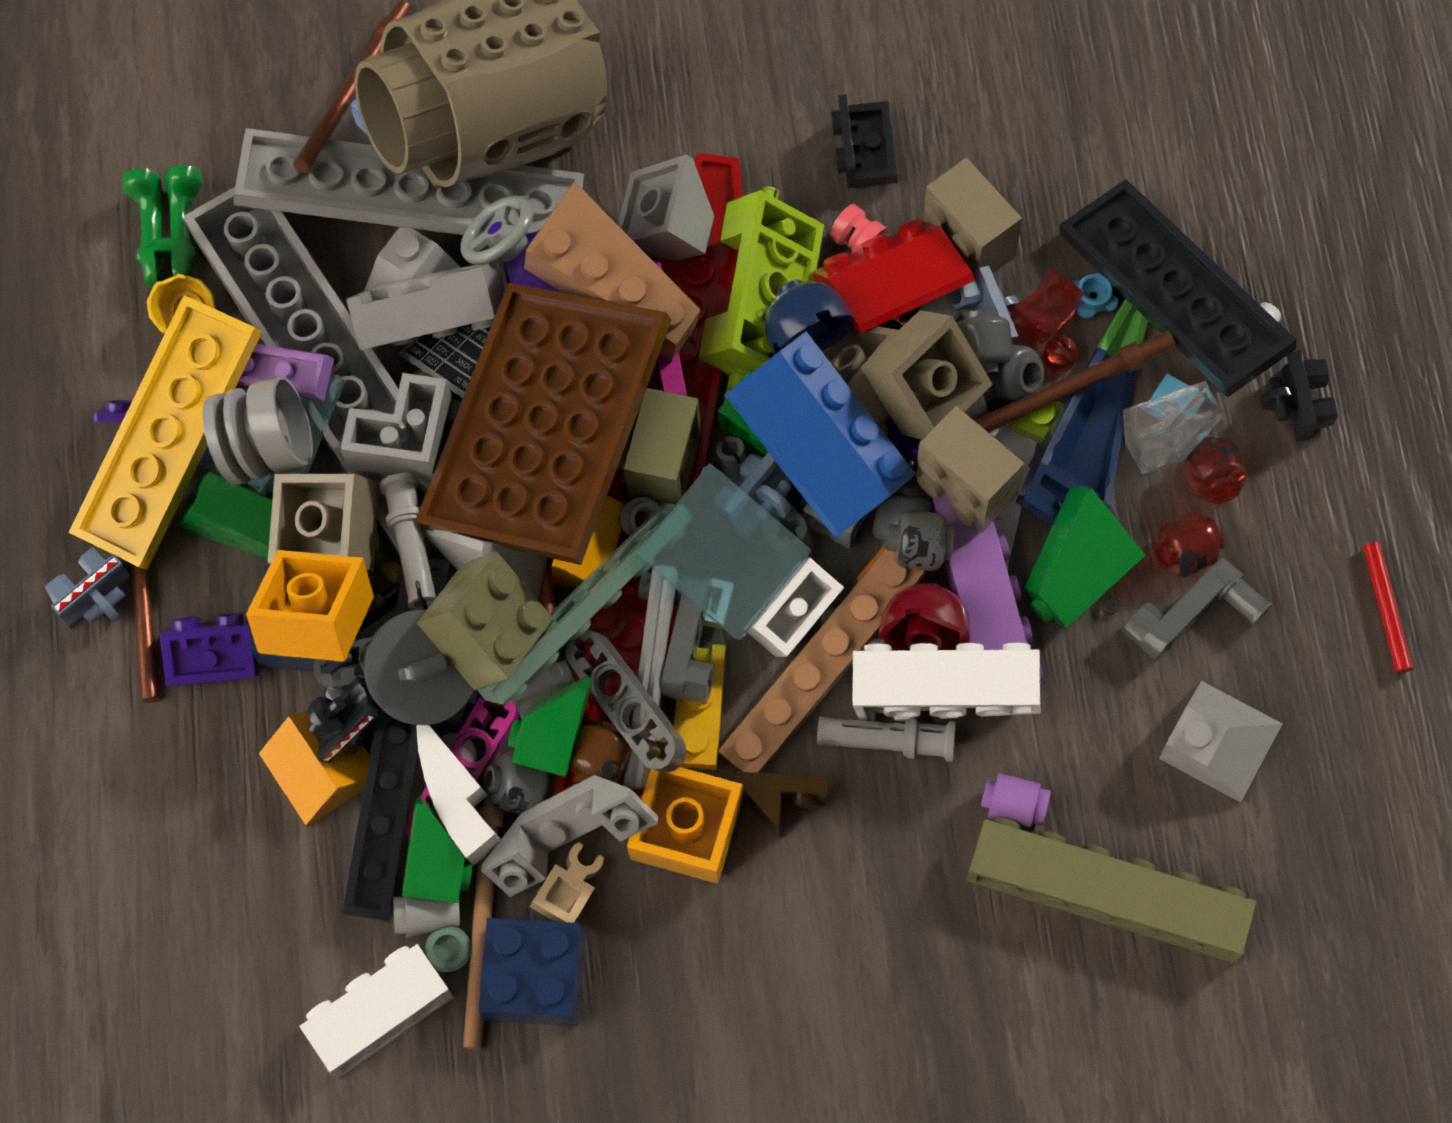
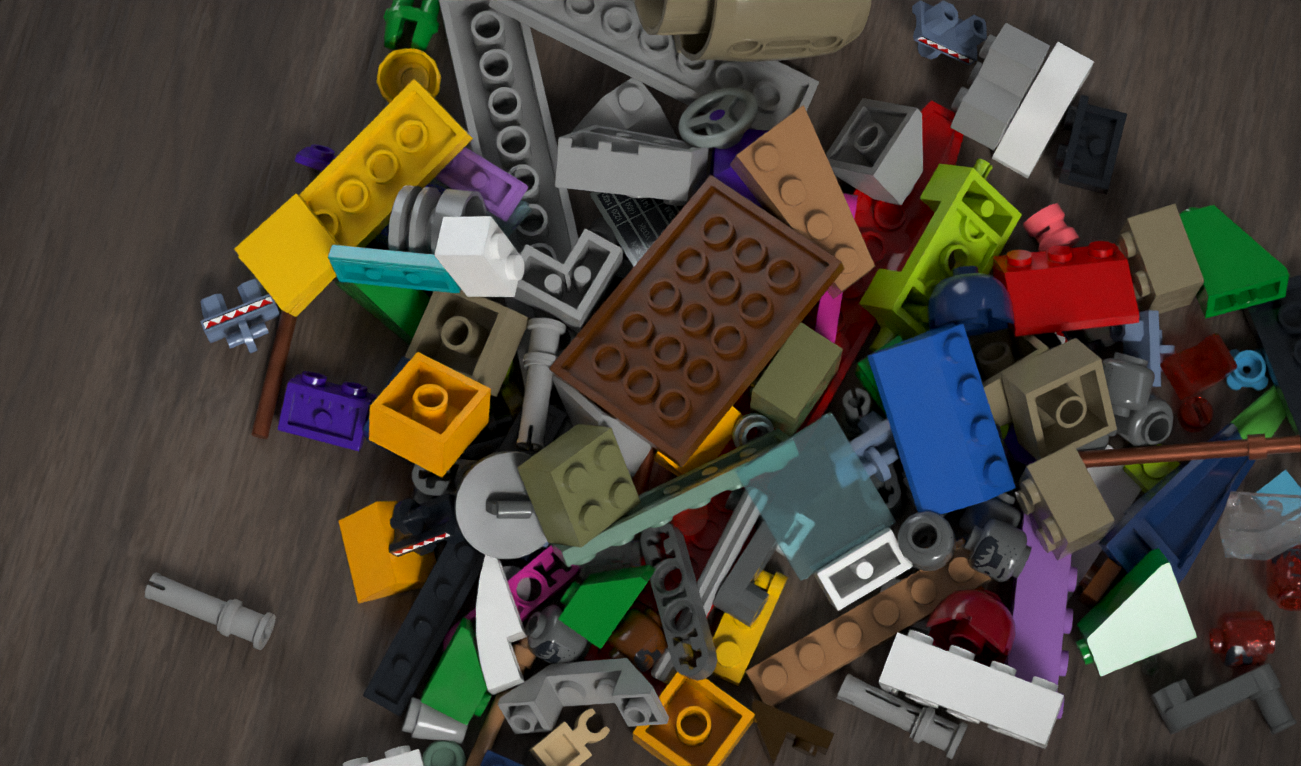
camera: 15 degrees right, 5 degrees up
(120, 506) = (289, 253): none -> yellow tile
(177, 886) = (229, 616): none -> light grey pin
(227, 477) = (391, 269): none -> teal tile
(305, 430) = (479, 256): none -> white brick
(686, 88) = (941, 31): none -> sand blue hips
(758, 114) = (998, 85): none -> light grey brick
(807, 125) = (1043, 109): none -> white slope
(845, 543) = (922, 527): none -> dark grey head
(1028, 541) = (1097, 581): none -> reddish brown plate
(1047, 199) = (1232, 264): none -> green slope

